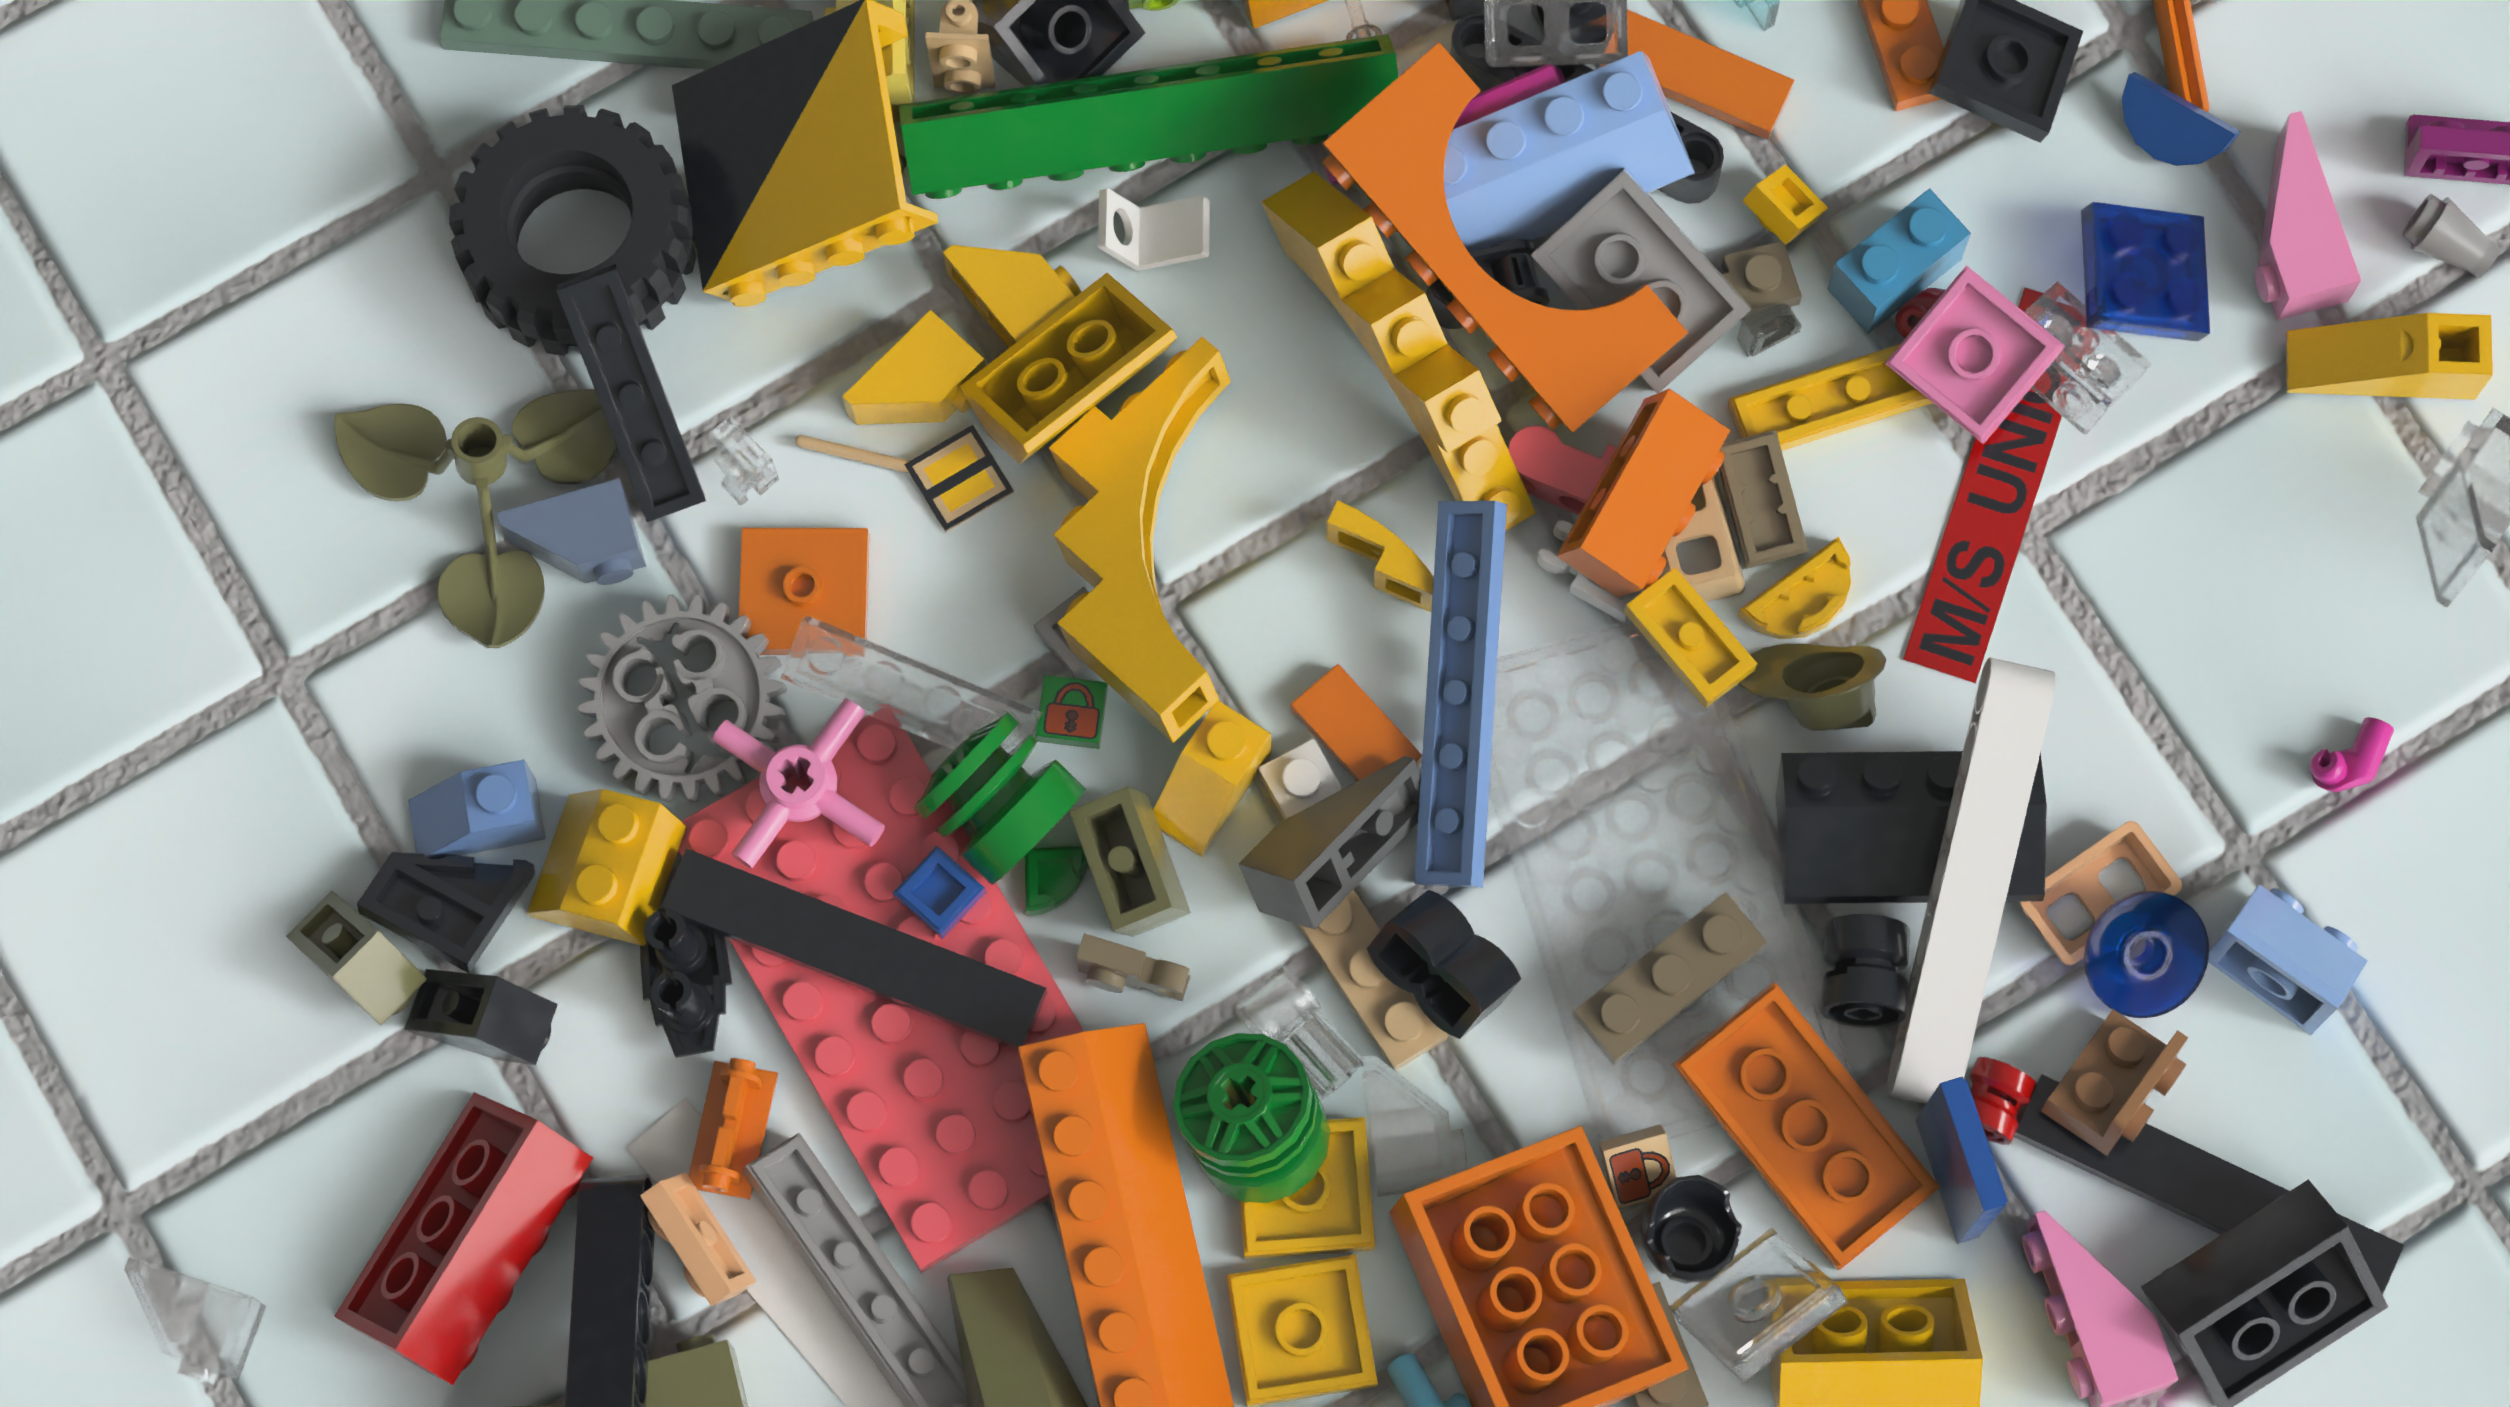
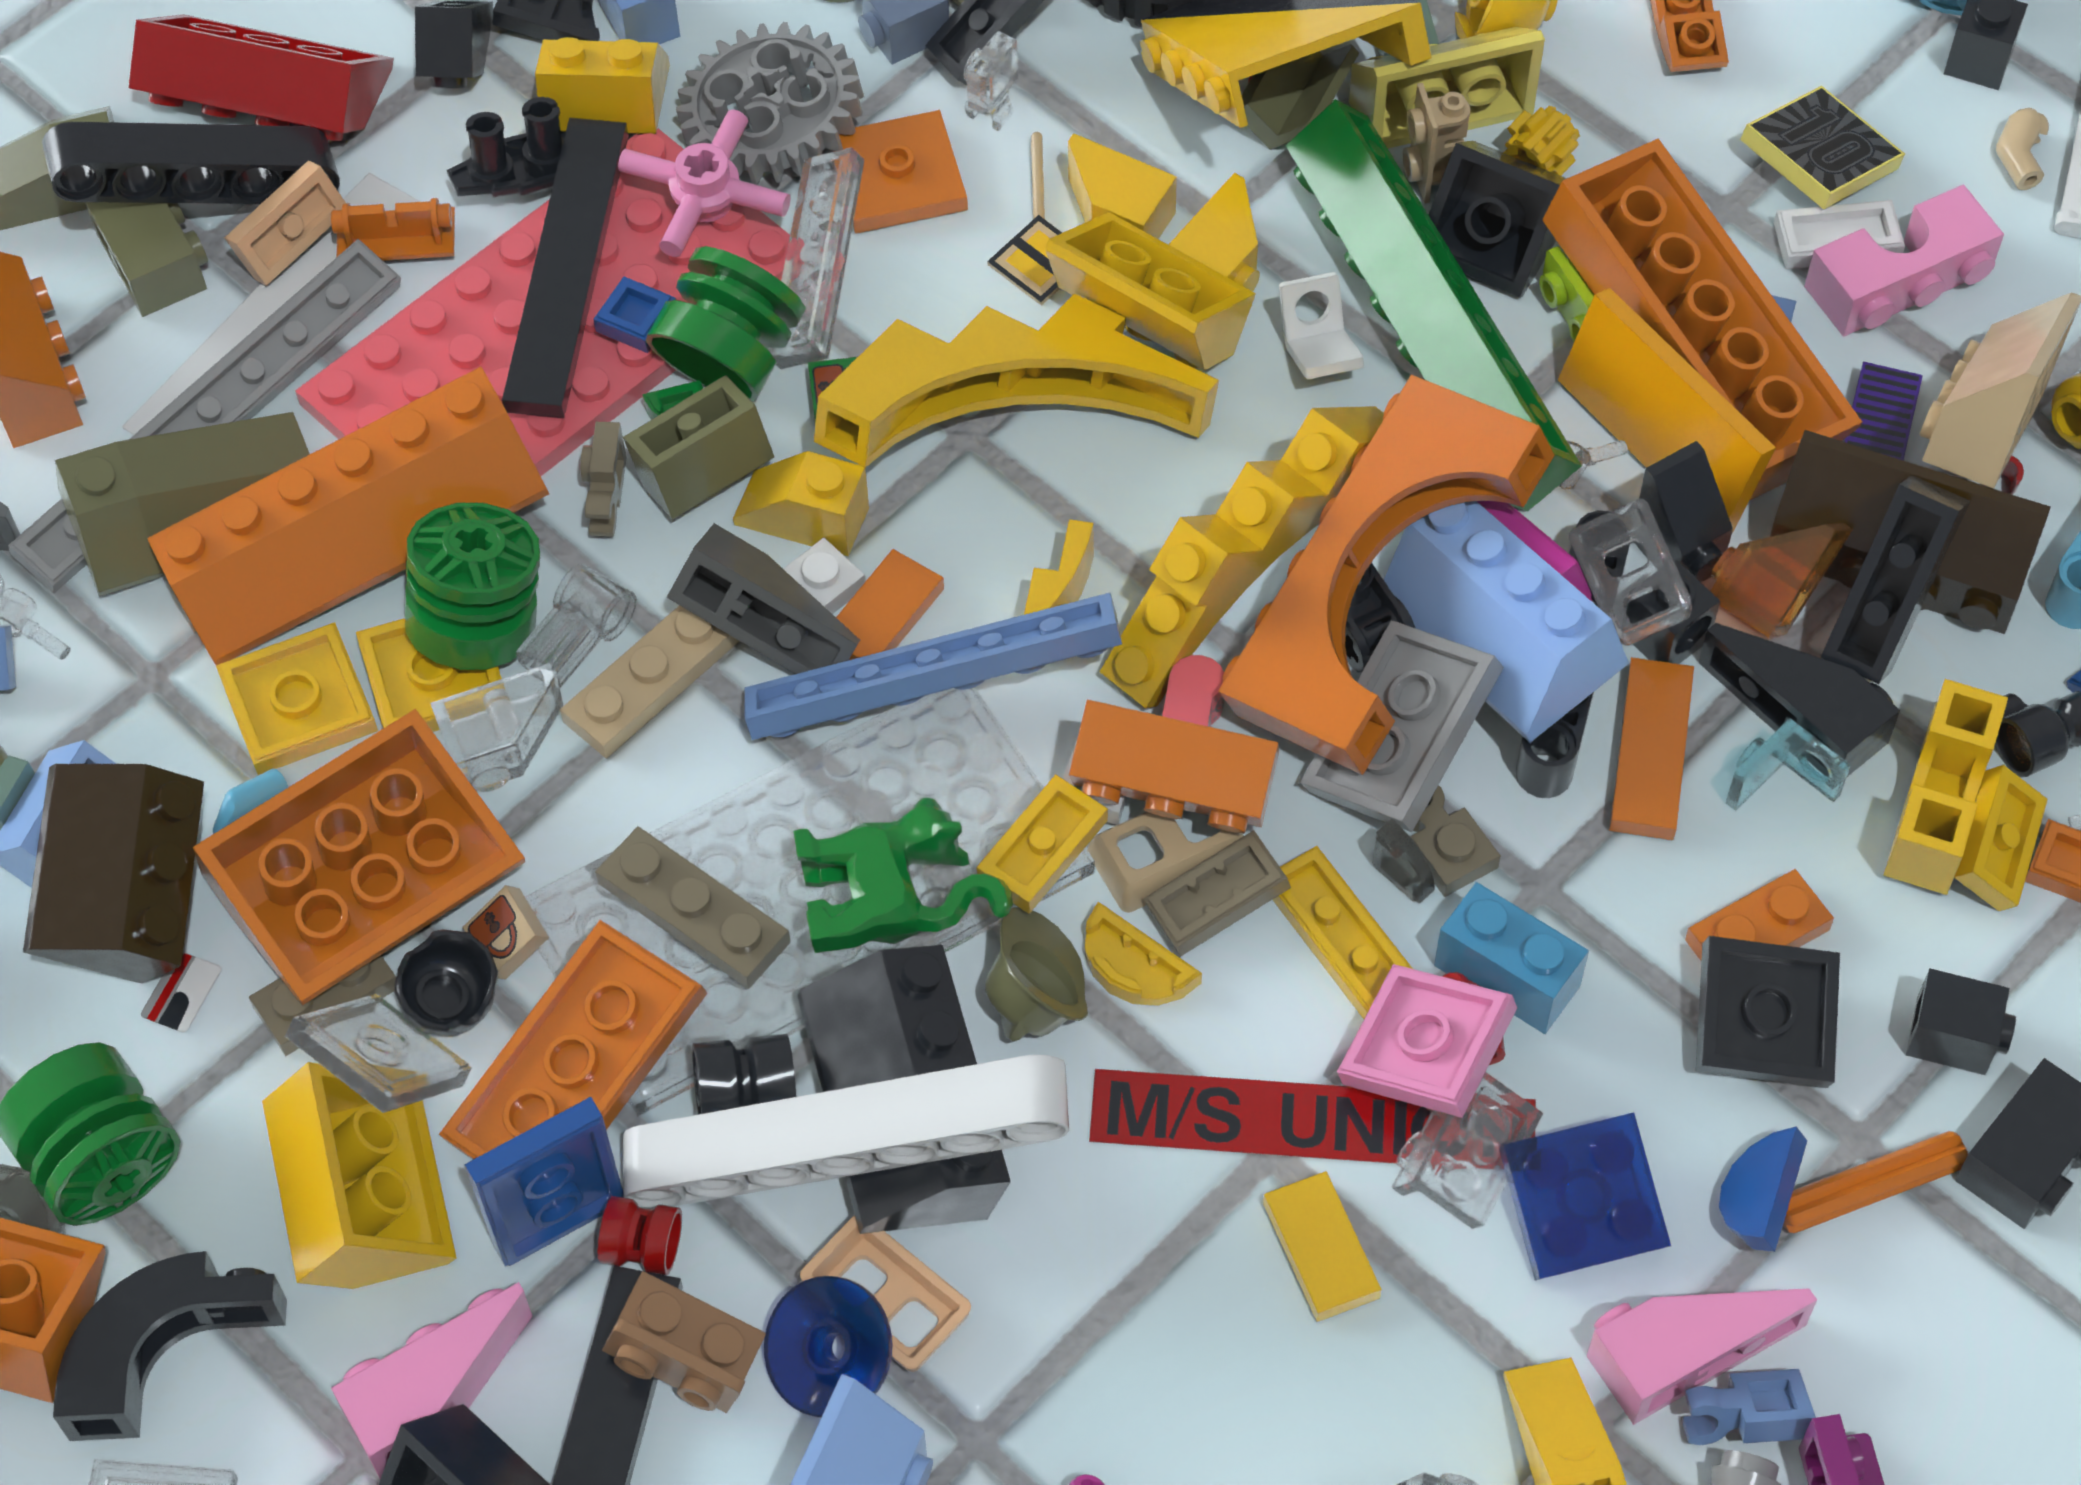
camera: 75 degrees right, 15 degrees down
(1443, 964) = (664, 717): black brick -> none
(1702, 794) = (883, 897): none -> green animal
(1785, 204) = (1537, 846): yellow plate -> none
(2131, 508) = (1322, 1246): none -> yellow tile
(2367, 189) = (1758, 1403): none -> medium blue plate

